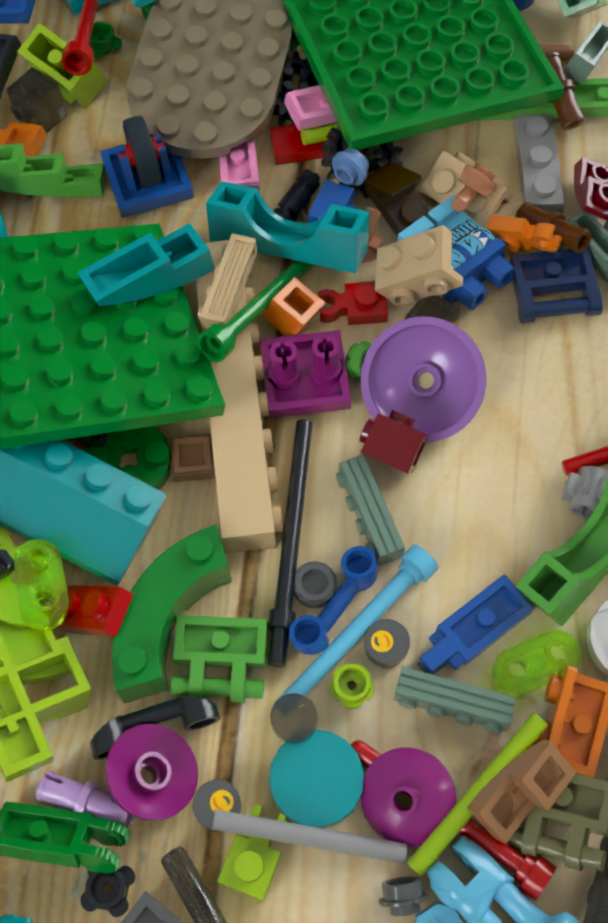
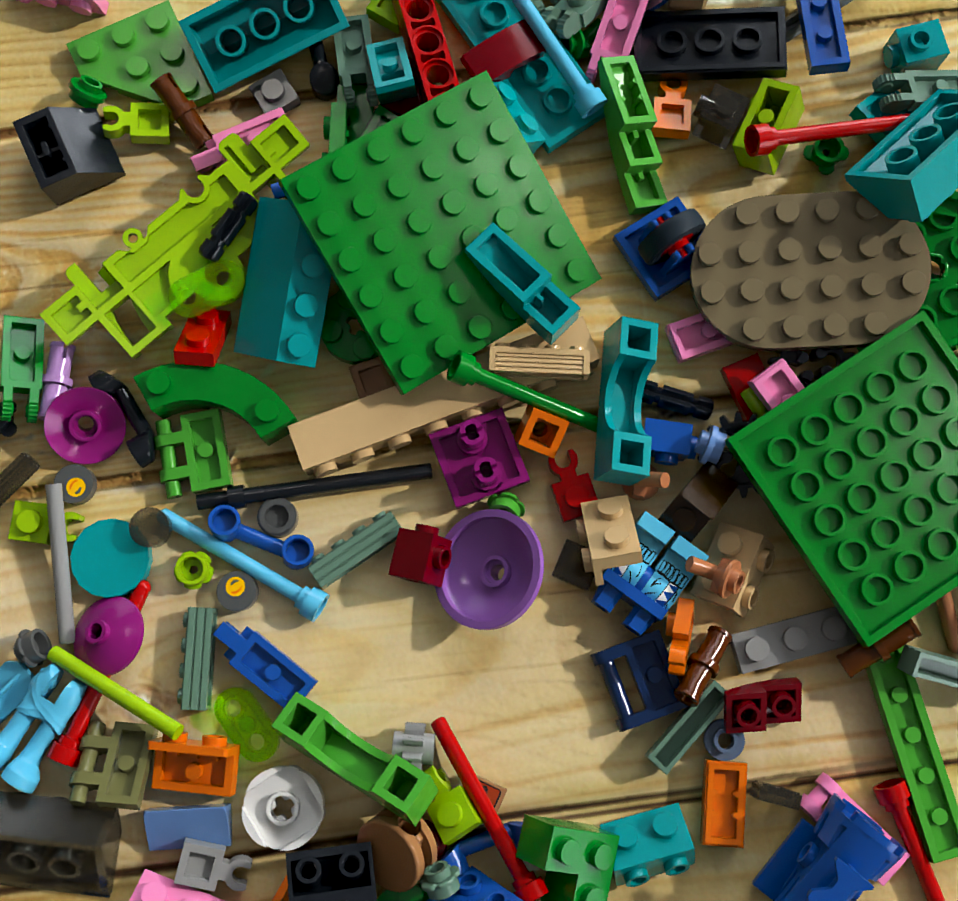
camera: 75 degrees right, 15 degrees up
(527, 781) = (128, 733): medium nougat slope -> none

